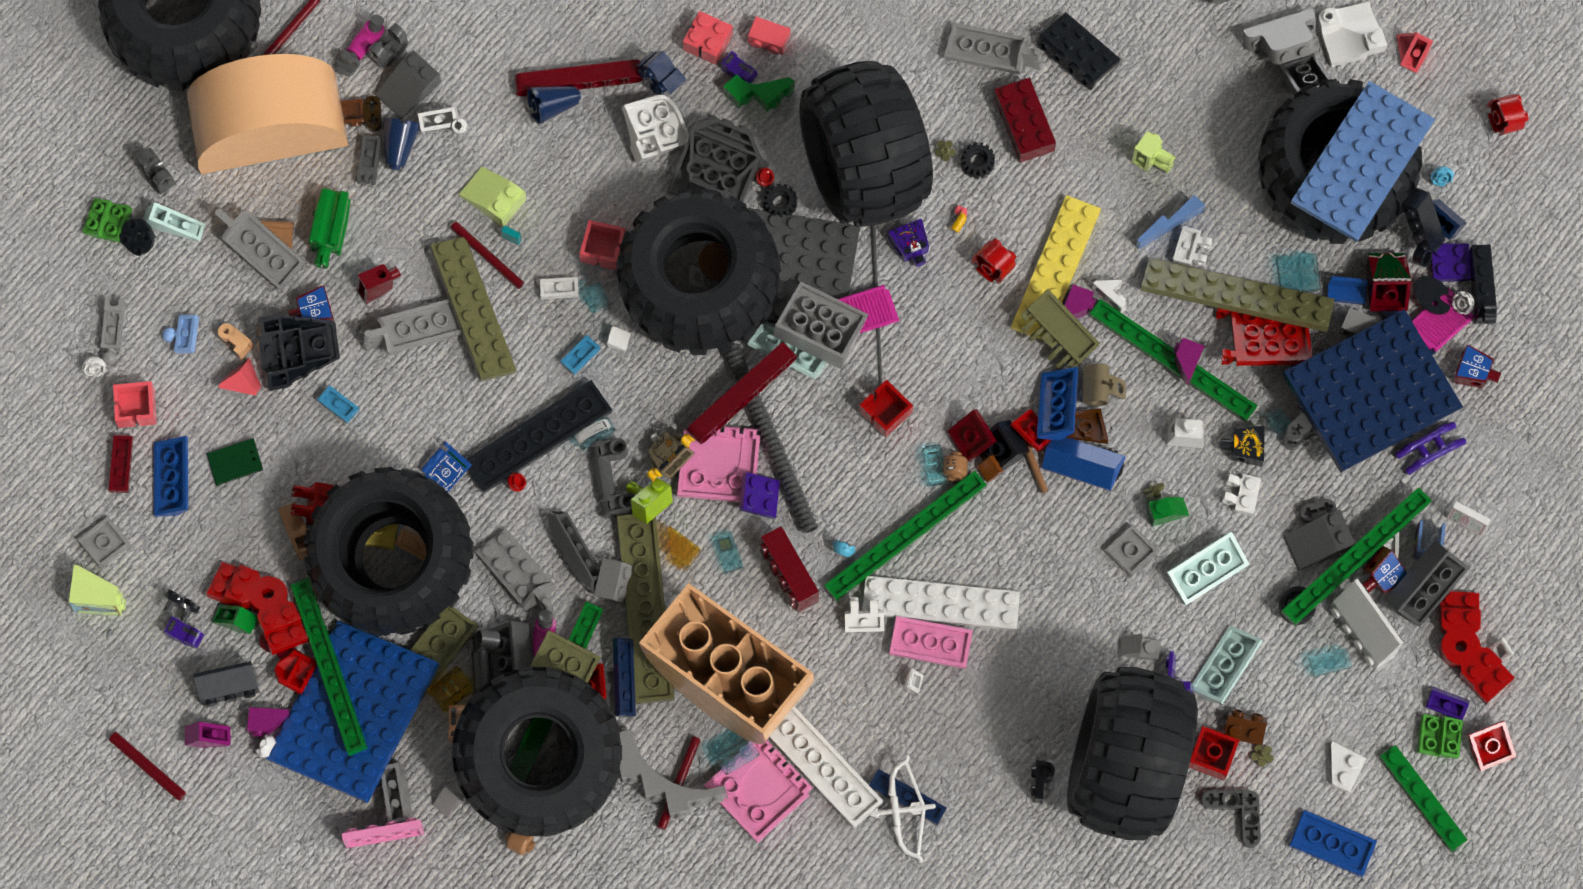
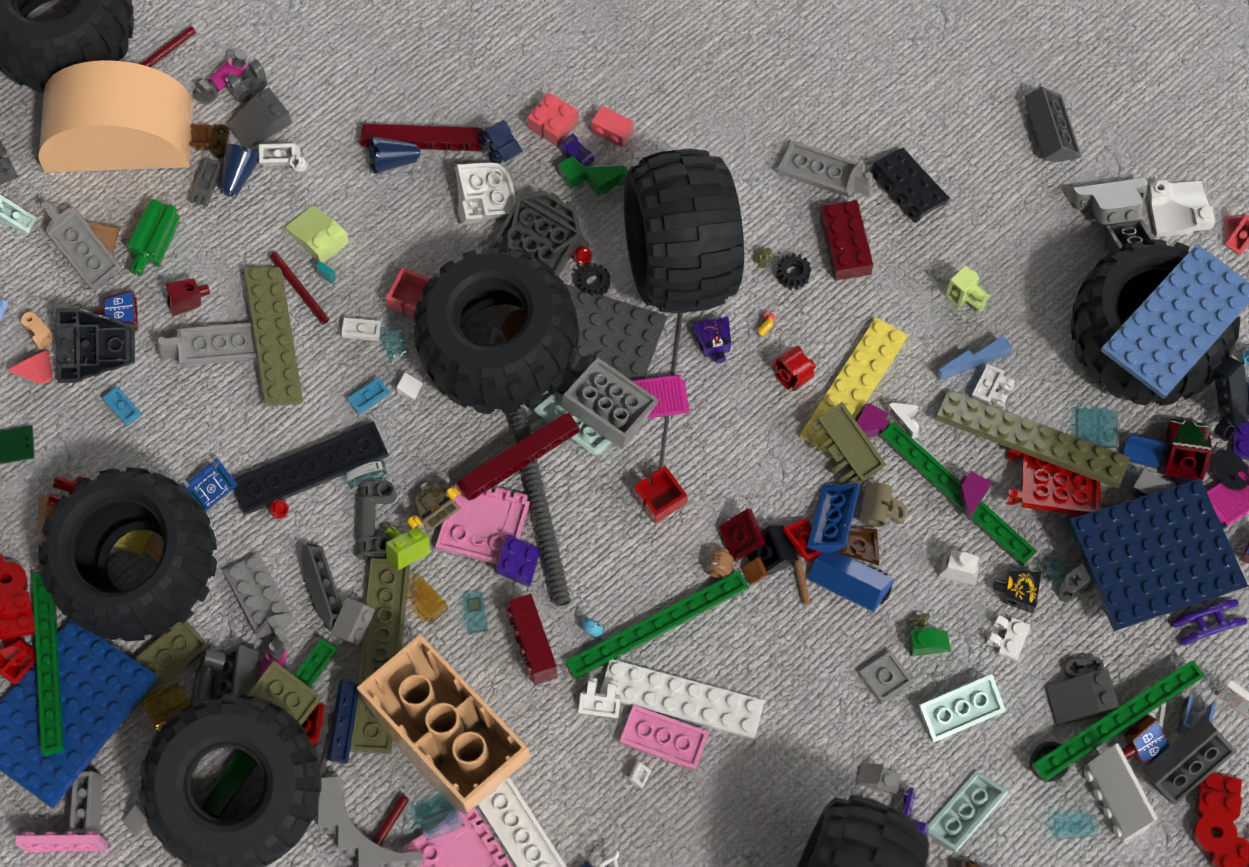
camera: 10 degrees right, 5 degrees down
(933, 465) = (698, 559): clear light blue slope -> none

